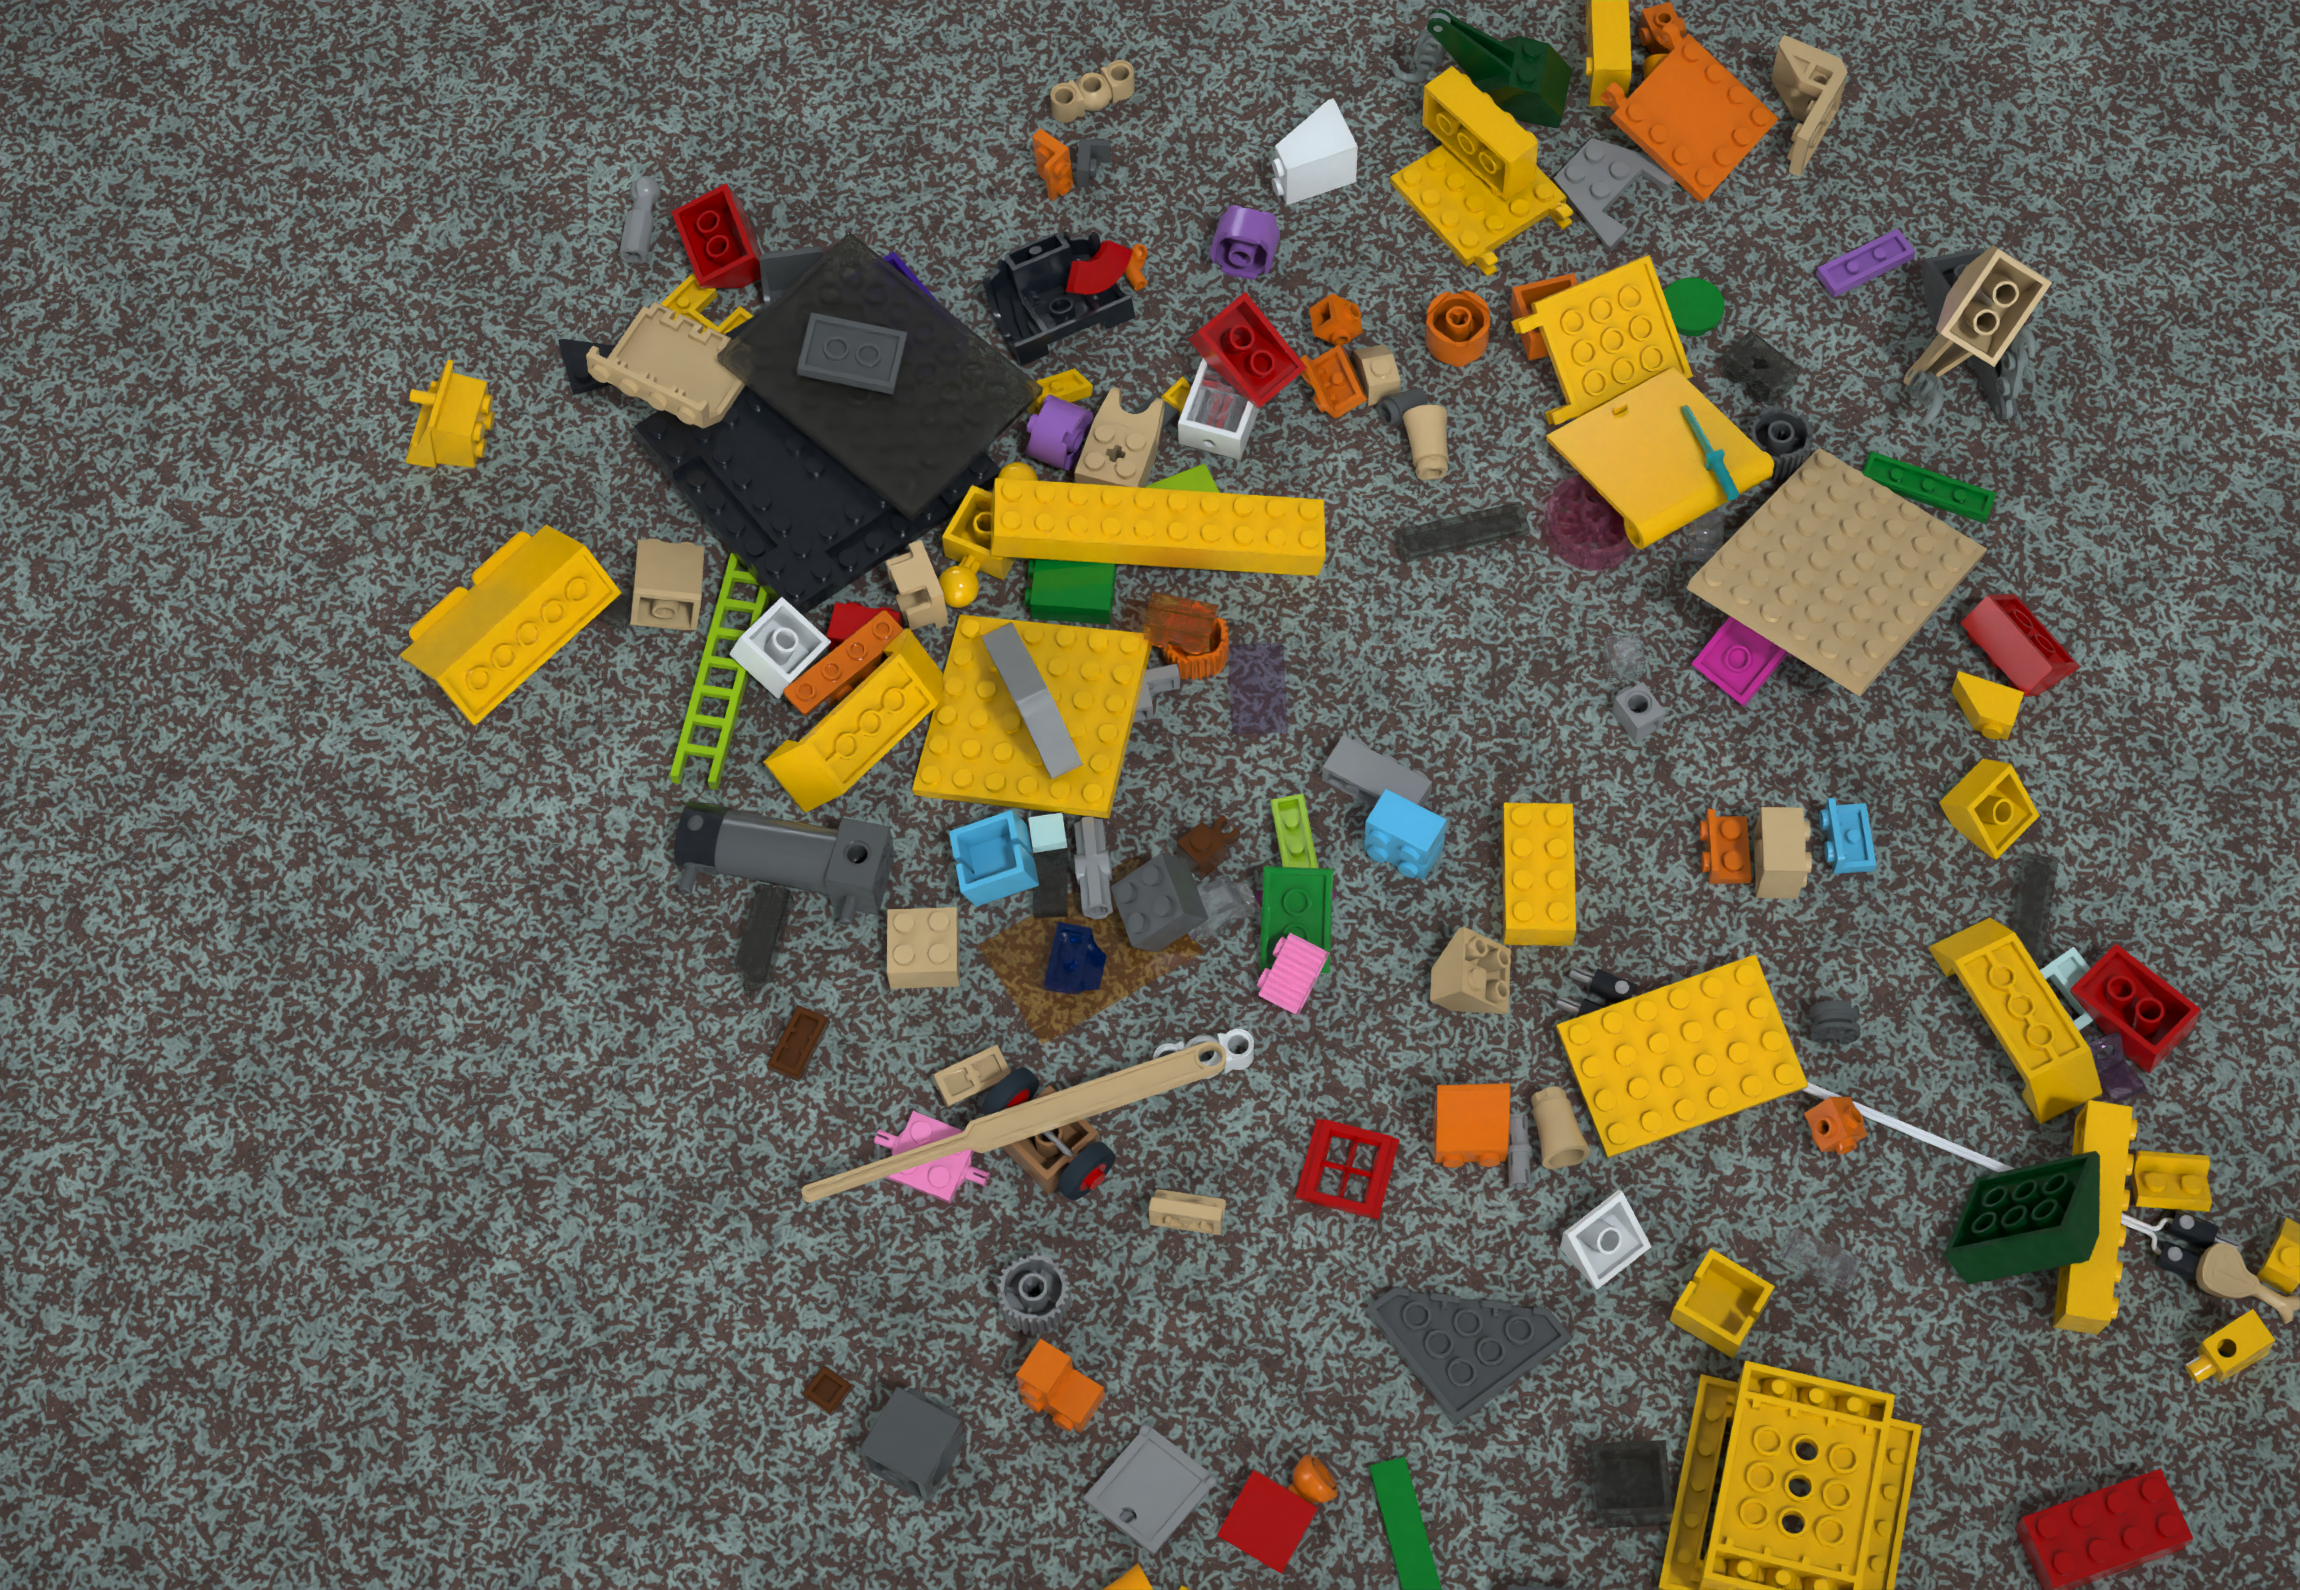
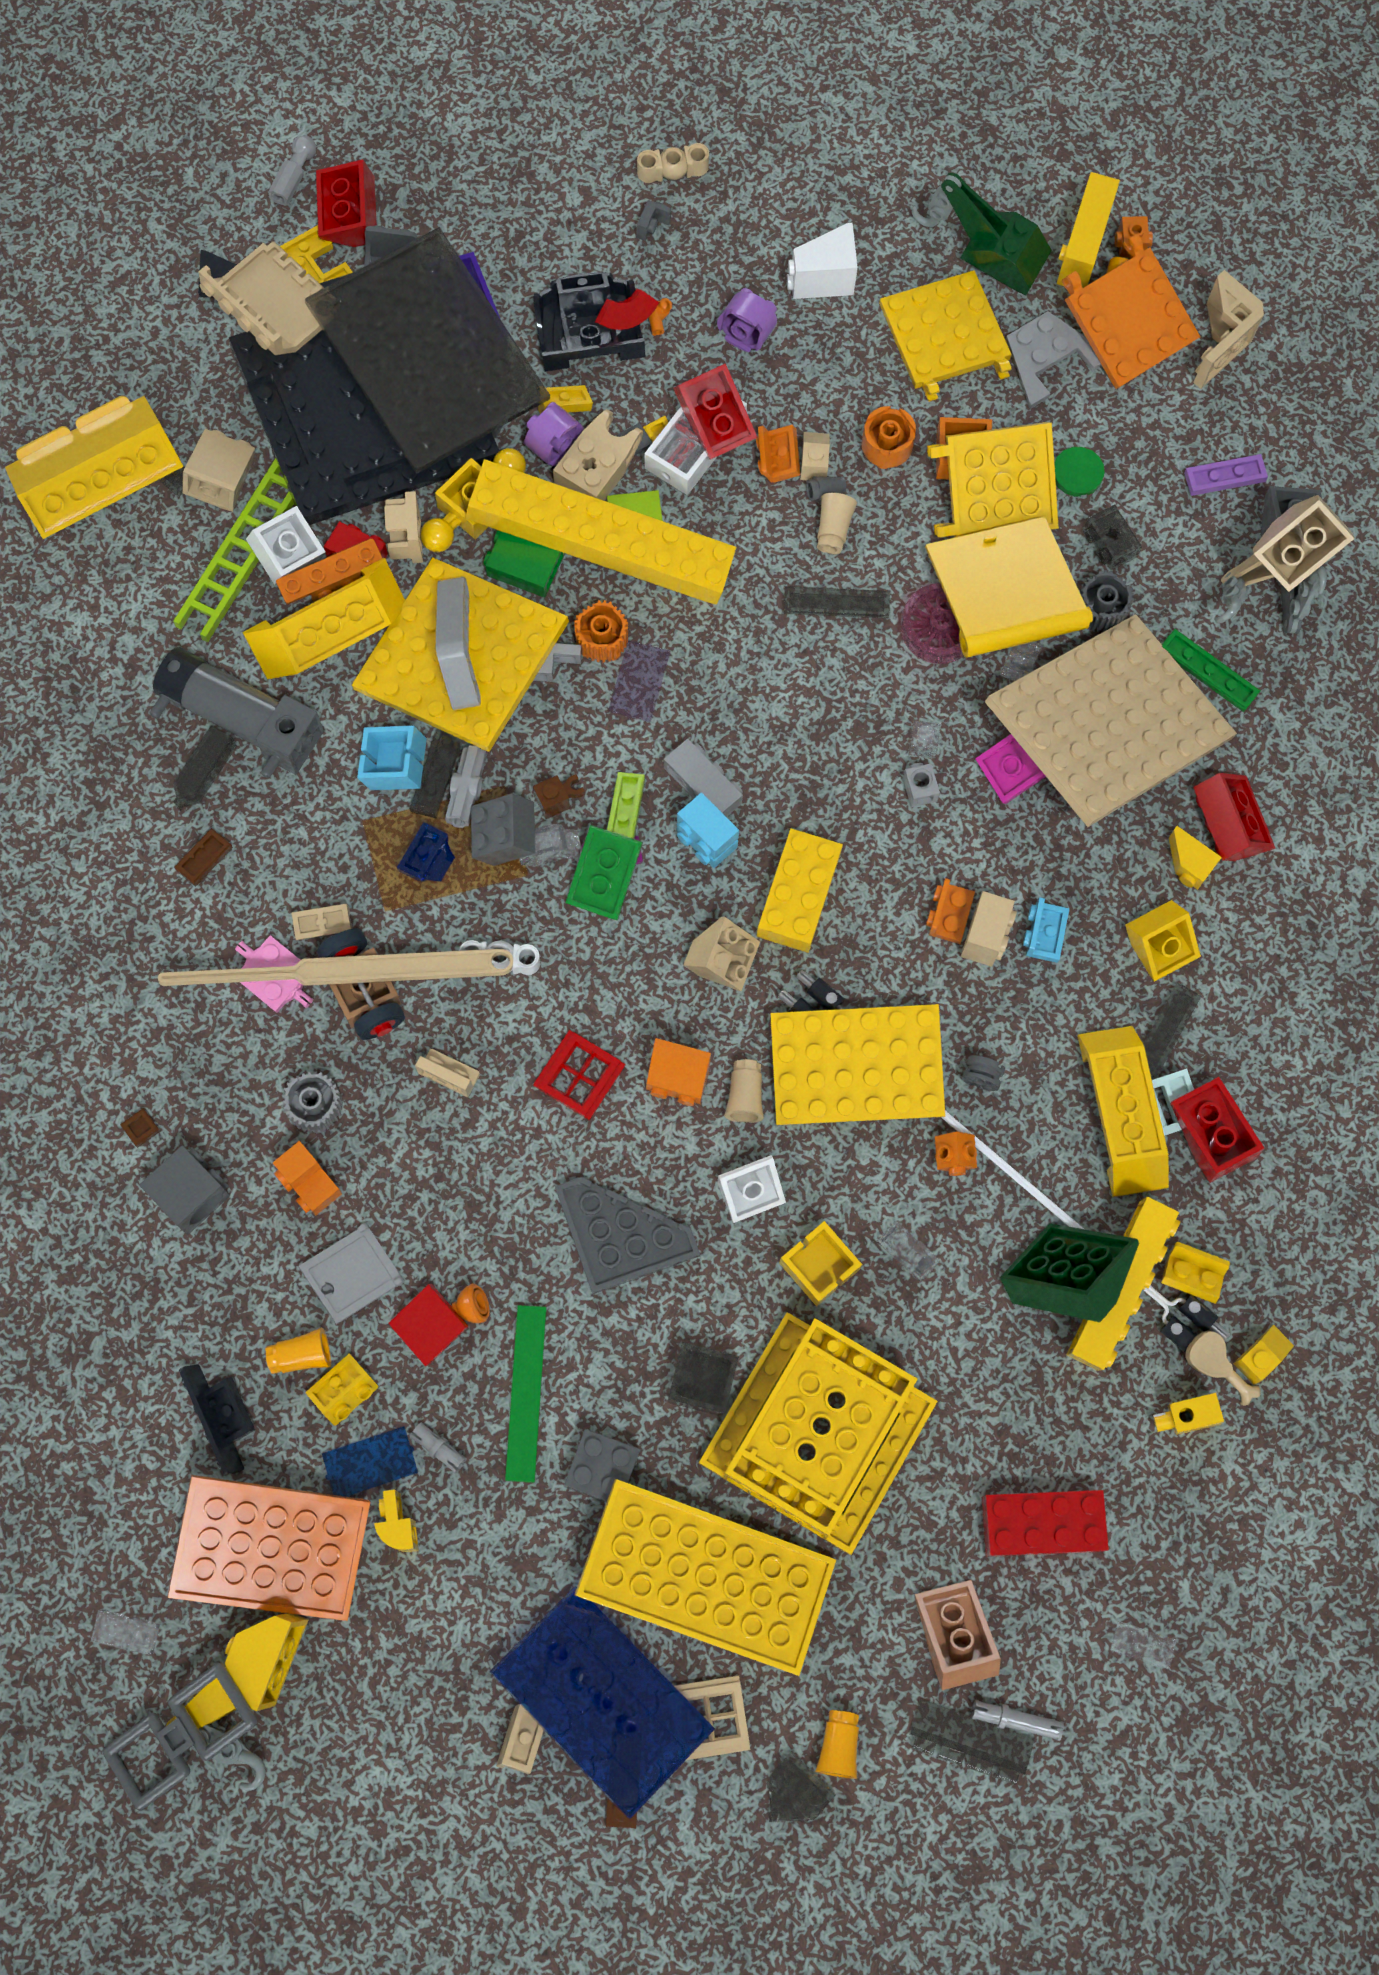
camera: 10 degrees right, 10 degrees up
(451, 421) = (98, 293): yellow piece -> none
(852, 353) = (408, 326): dark grey plate -> none
(923, 947) = (318, 811): tan brick -> none
(1047, 832) = (440, 749): light aqua tile -> none
(1053, 164) = (621, 215): orange bracket -> none
(1180, 623) = (590, 615): clear orange brick -> none
(1292, 973) = (587, 913): bright pink brick -> none
(1336, 320) = (796, 404): orange brick -> none
(1480, 133) = (958, 283): yellow brick -> none
(1519, 1152) = (710, 1100): light grey pin -> none
(1714, 459) = (1045, 602): teal sword -> none
(2114, 1073) = (1182, 1174): clear purple bracket -> none

